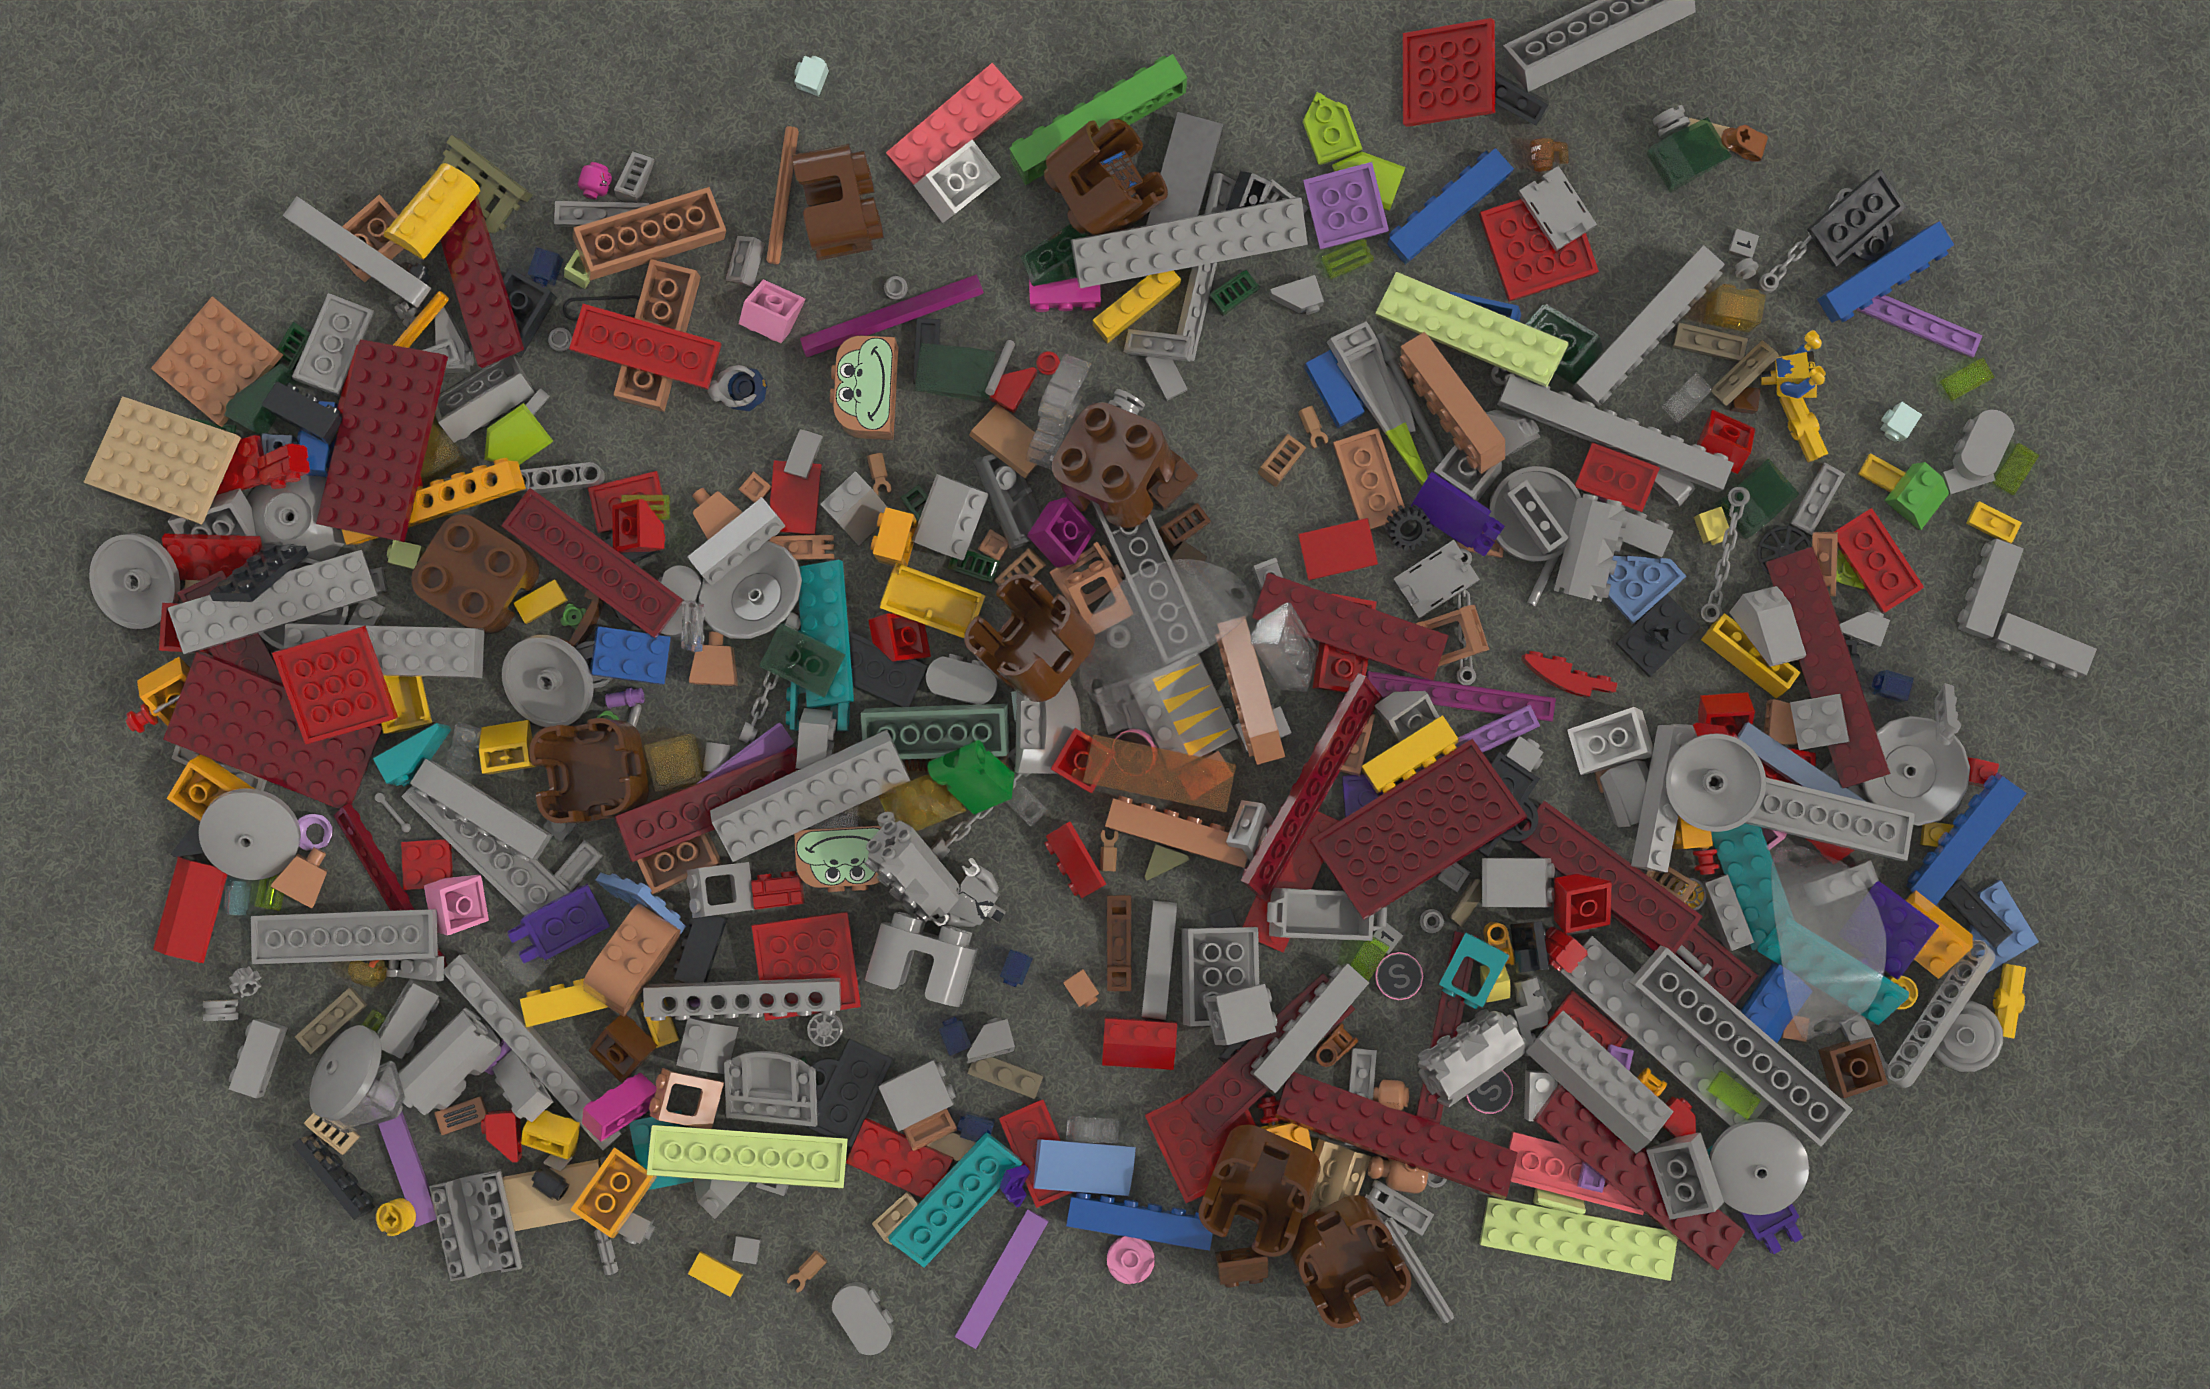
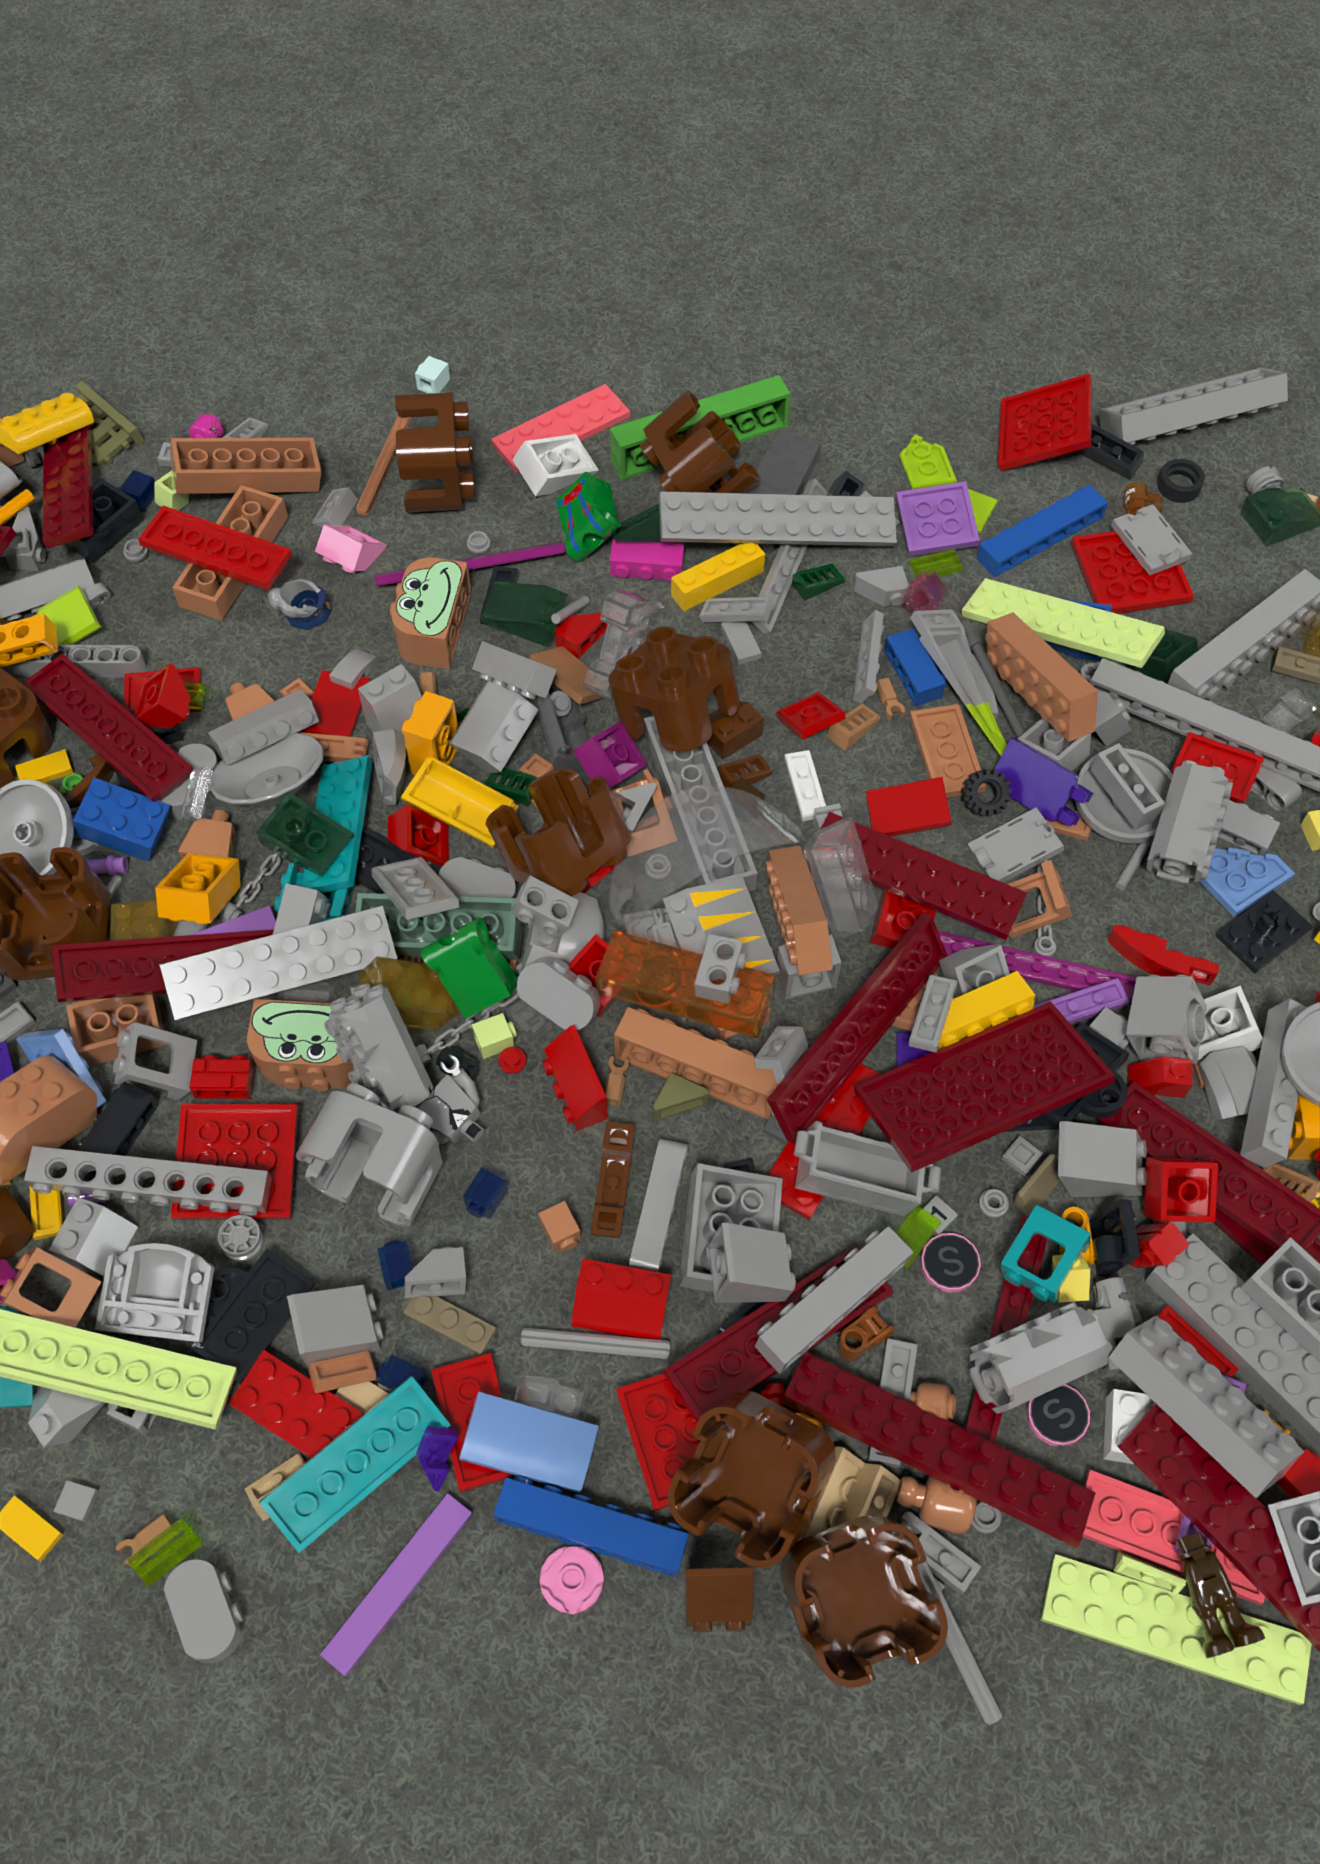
camera: 10 degrees right, 25 degrees down
(718, 721) = (198, 888): none -> light orange brick
(824, 1279) = (170, 1561): none -> clear neon green tile
(861, 567) = (389, 763): none -> light grey slope
(910, 705) = (414, 888): none -> light grey tile
(959, 454) = (513, 671): none -> light grey brick
(972, 849) = (467, 1063): none -> black brick
(1000, 823) = (493, 1035): none -> yellowish green brick
(1001, 253) = (587, 515): none -> green piece
(1018, 842) = (512, 1060): none -> red plate
(1029, 713) = (546, 900): none -> light grey brick
(1052, 790) = (558, 993): none -> light grey brick
(1095, 591) = (637, 798): none -> light grey slope
(1123, 1078) = (595, 1343): none -> light grey axle
(1183, 770) = (716, 968): none -> light grey brick
(1241, 457) = (811, 715): none -> red tile
(1242, 531) = (804, 783): none -> white tile
(1290, 382) = (868, 657): none -> light grey plate
(1339, 307) = (925, 592): none -> clear pink brick
(1372, 767) = (933, 1013): none -> light grey tile
(1566, 792) = (1162, 1076): none -> red slope
(1571, 745) = (1166, 1018): none -> light grey brick
(1581, 139) = (1178, 493): none -> black tyre
(1604, 1215) = (1212, 1590): none -> dark brown piece

